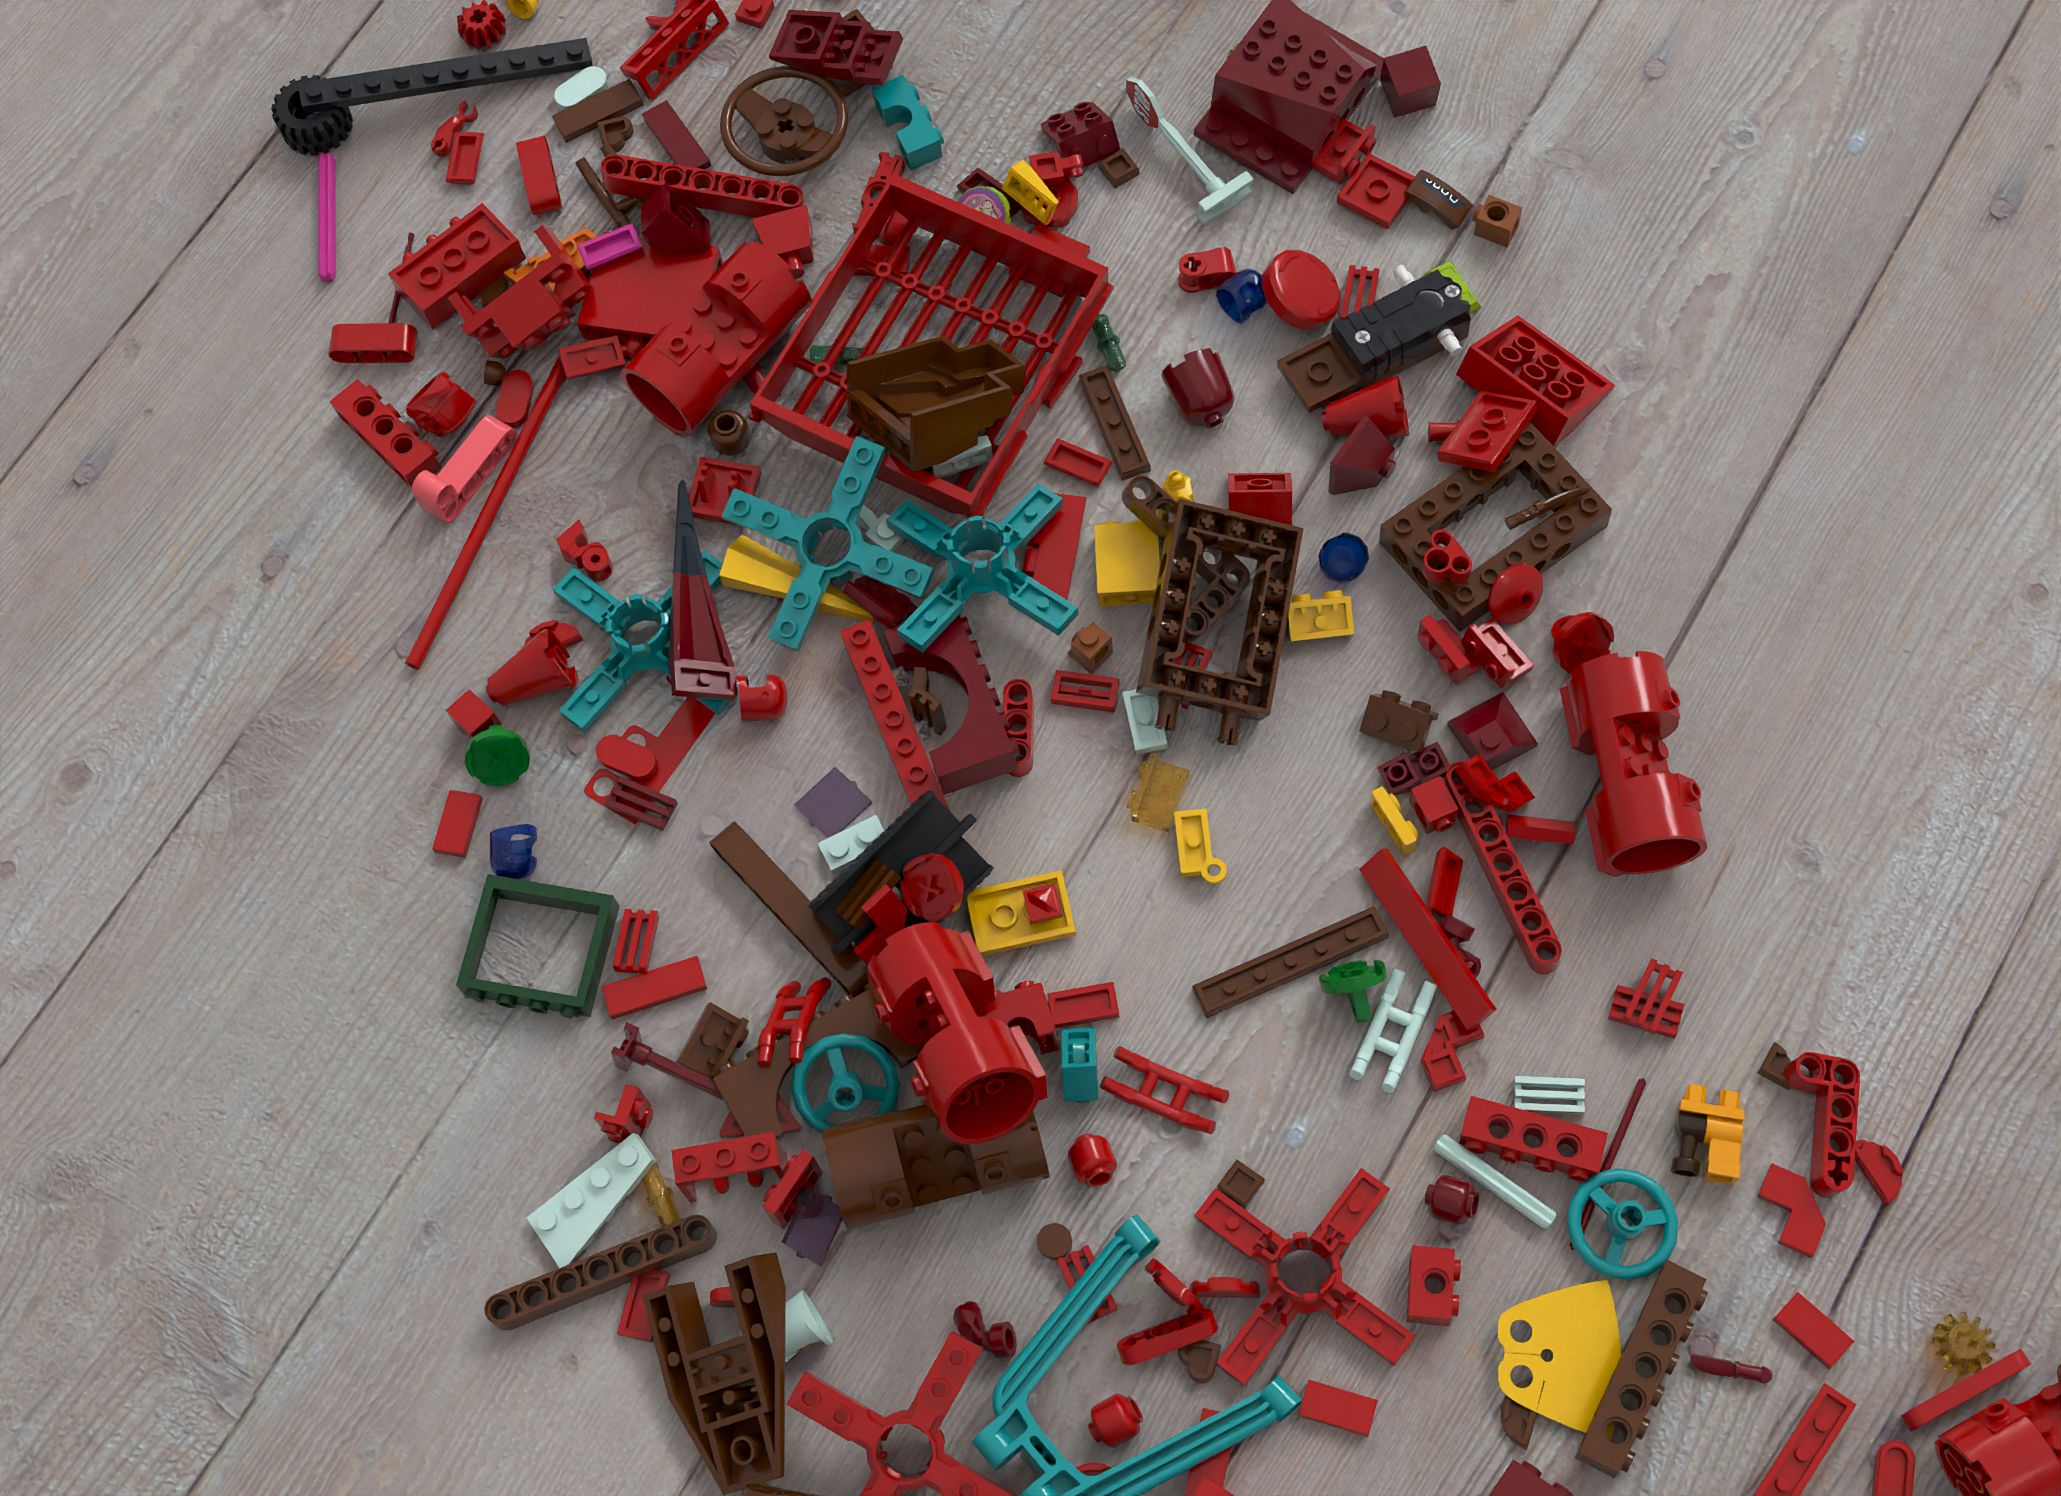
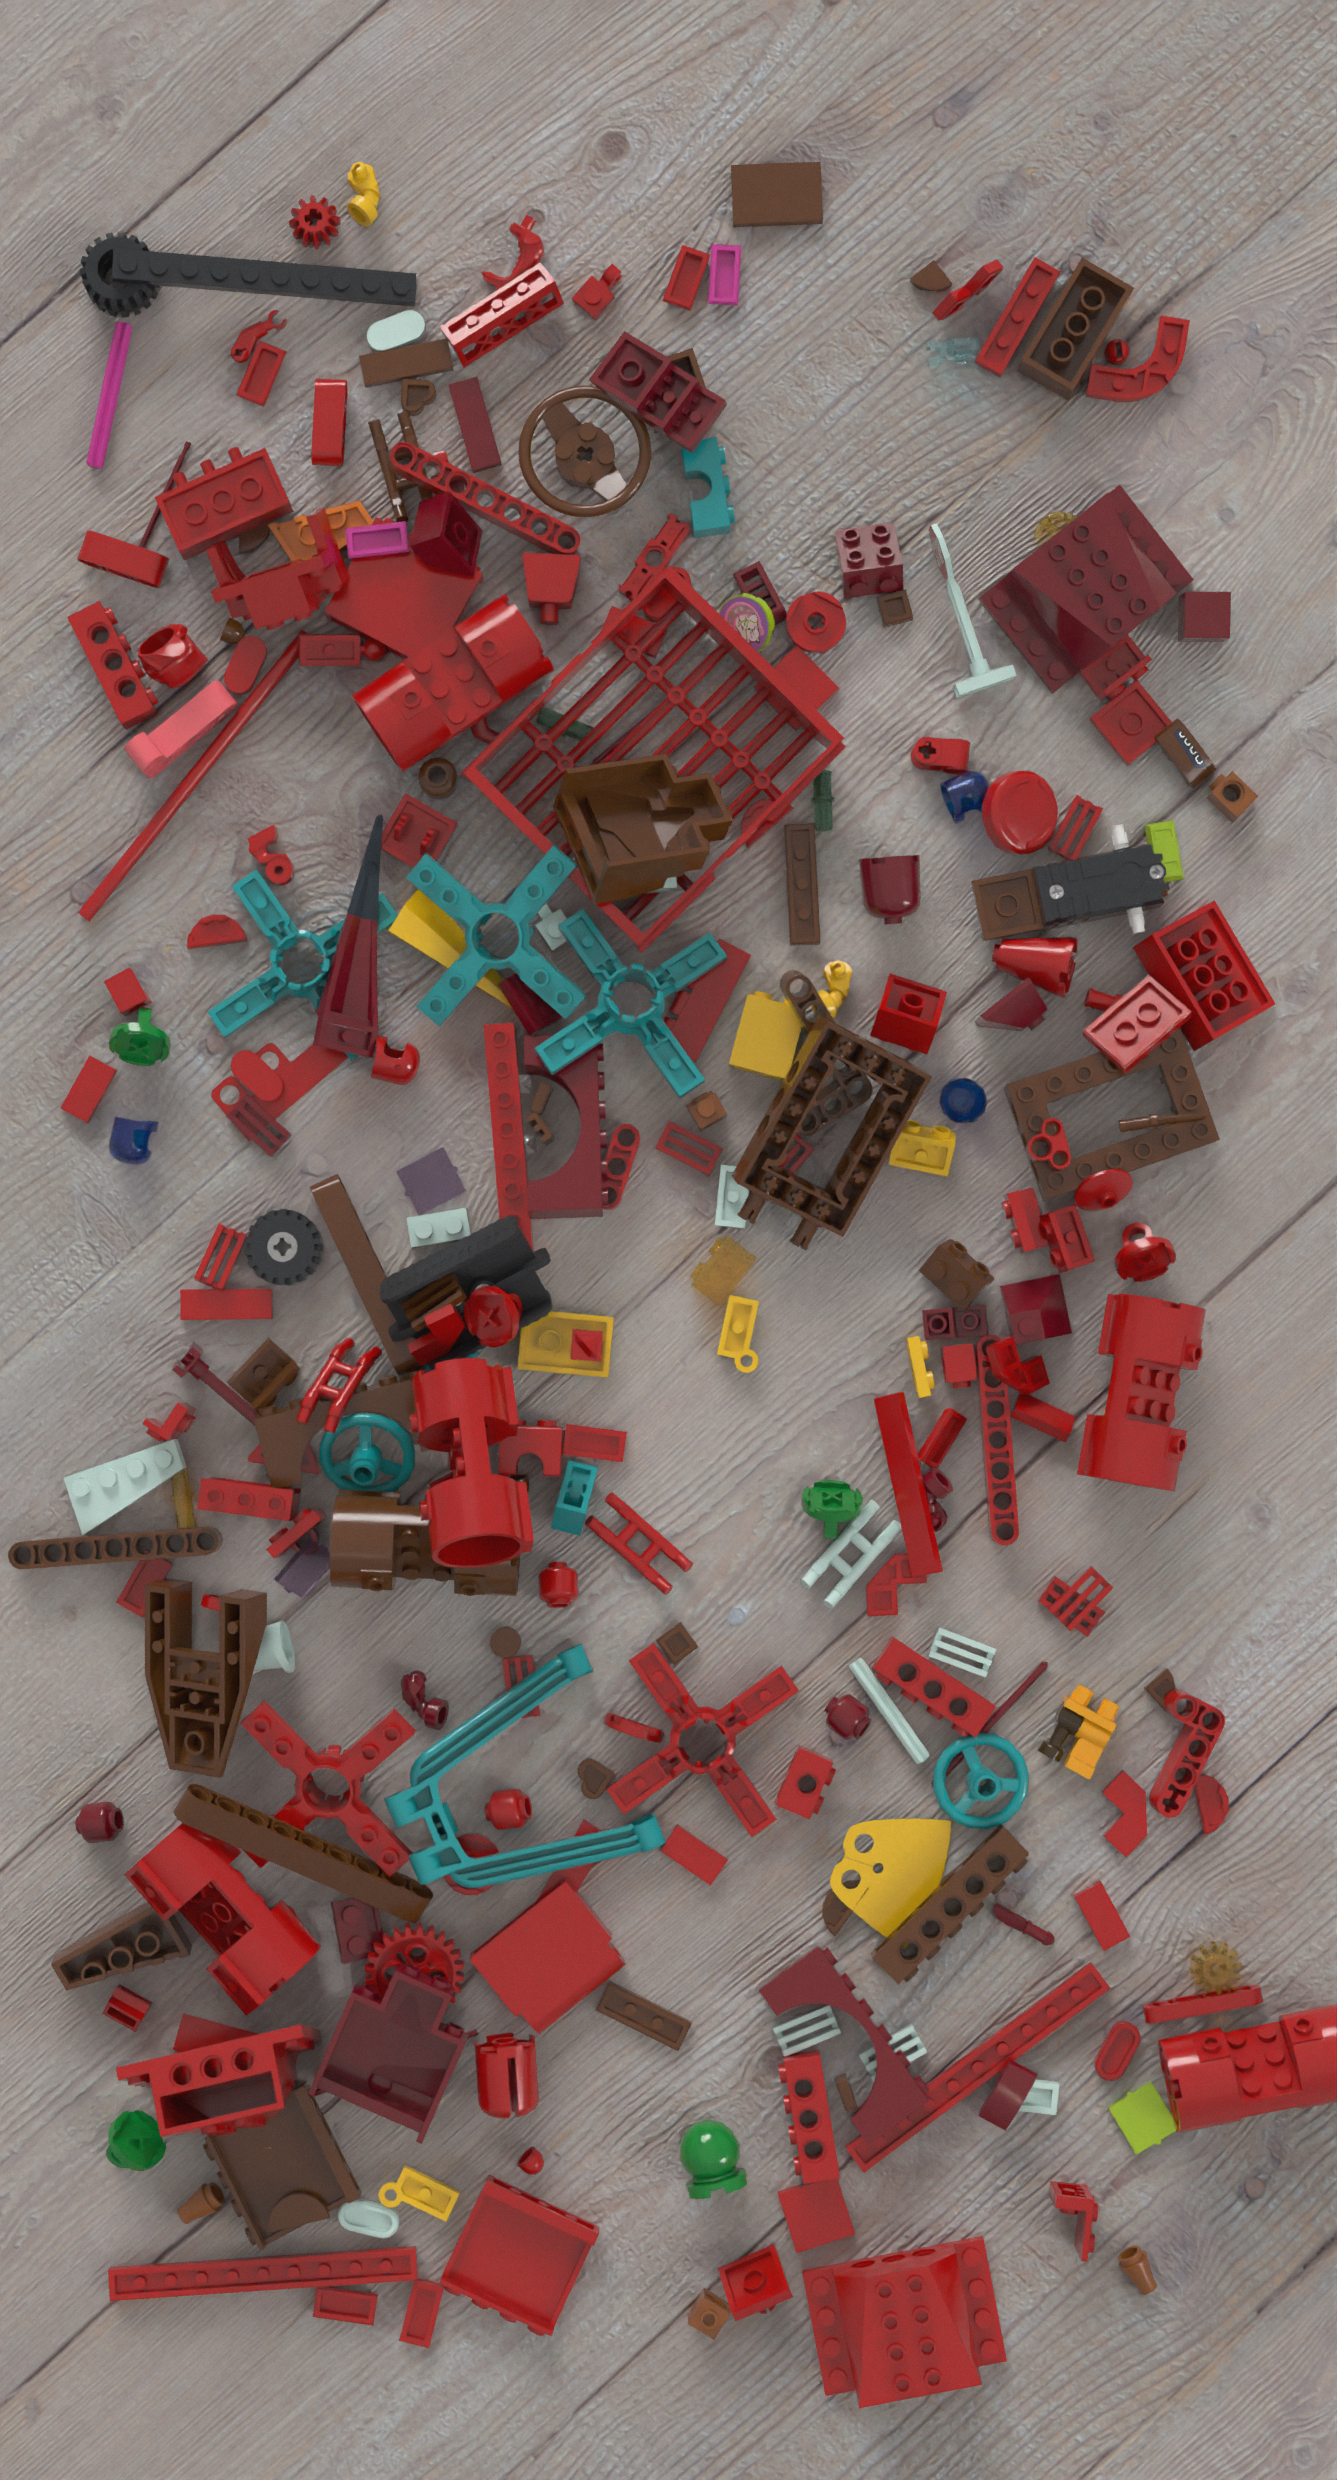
camera: 10 degrees right, 20 degrees up
(533, 671) = (194, 966): red cone -> none
(545, 895) = (120, 1286): dark green window -> none
(707, 923) = (299, 1245): none -> black wheel
(1017, 185) = (799, 618): yellow slope -> none
(1053, 168) = (825, 596): red plate -> none
(1077, 462) = (754, 916): red tile -> none
(1166, 1337) = (602, 1754): red beam -> none
(1173, 1287) = (591, 1719): red tile -> none
(1290, 962) = (785, 1462): reddish brown tile -> none

